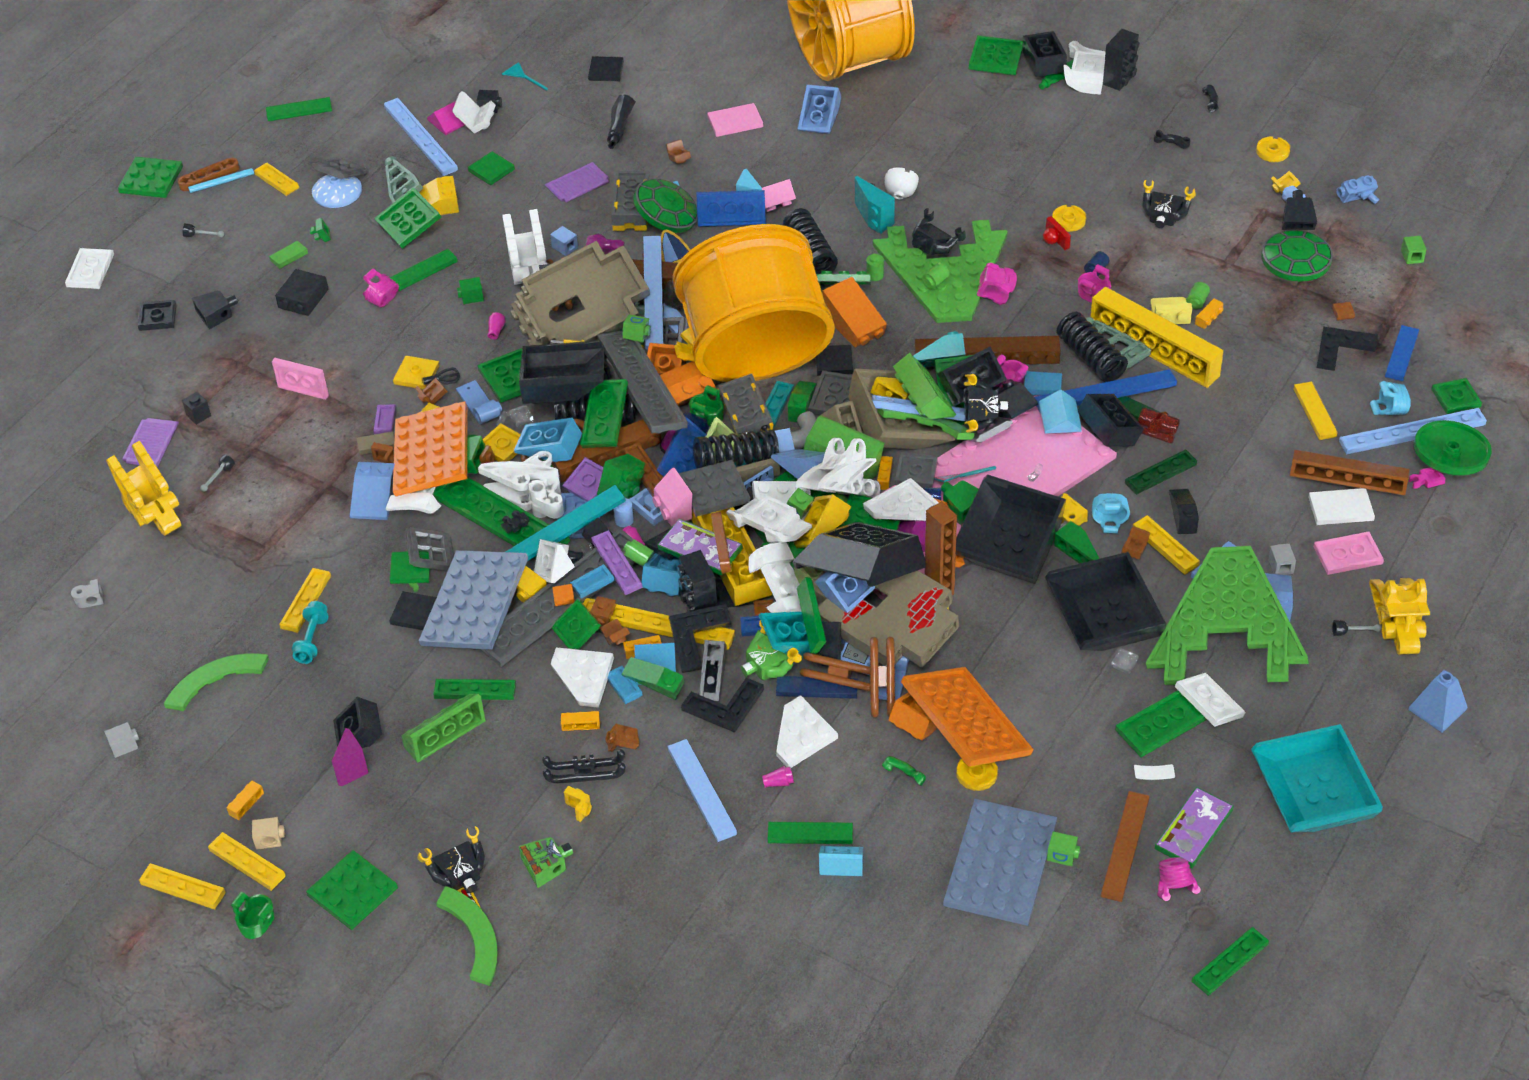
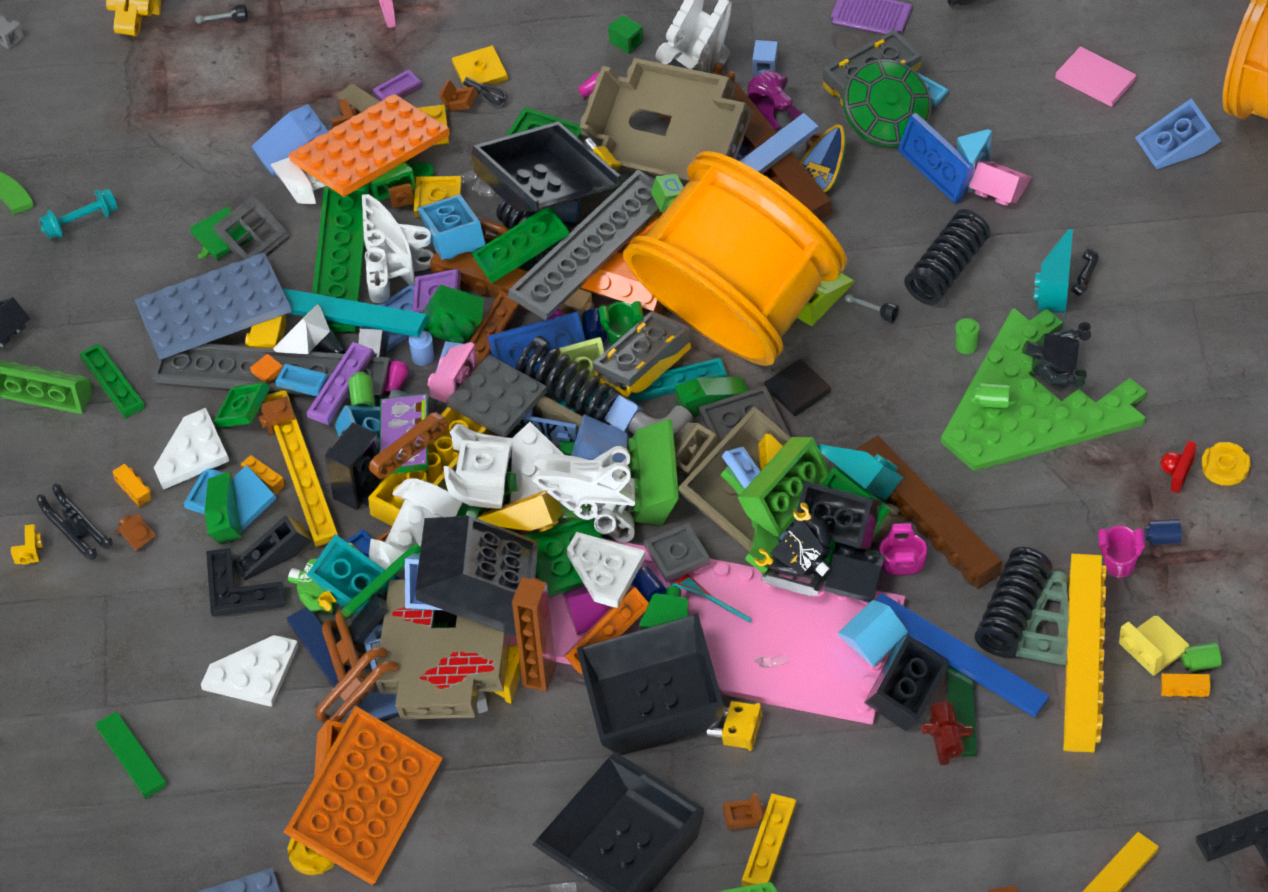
camera: 55 degrees right, 5 degrees up
(309, 592) = (124, 183): yellow tile -> none
(412, 610) = (170, 269): black tile -> none
(478, 403) = (480, 132): medium blue door -> none
(516, 523) = (333, 273): black piece -> none
(614, 632) = (260, 441): dark orange bracket -> none
(677, 152) = (990, 62): dark orange bracket -> none
(686, 624) = (301, 489): black plate -> none
(702, 790) = (119, 634): light blue tile -> none
(779, 777) = (179, 688): dark pink cone -> none
(800, 501) = (524, 479): bright green brick -> none
(828, 278) = (910, 313): plate -> none
(841, 860) = (113, 797): medium azure slope -> none
(853, 312) = (872, 358): orange slope -> none
(885, 471) = (664, 525): light orange piece -> none
(891, 762) = (267, 771): green arm -> none
(900, 183) = (1120, 278): white cylinder -> none
(996, 283) = (1034, 457): dark pink piece -> none
(1042, 382) = (921, 590): dark azure tile -> none
(1075, 543) = (699, 759): green slope -> none
(1110, 509) = (776, 758): medium azure piece -> none
(1161, 471) = (884, 778): dark green tile -> none
(1184, 511) = (837, 830): black slope -> none

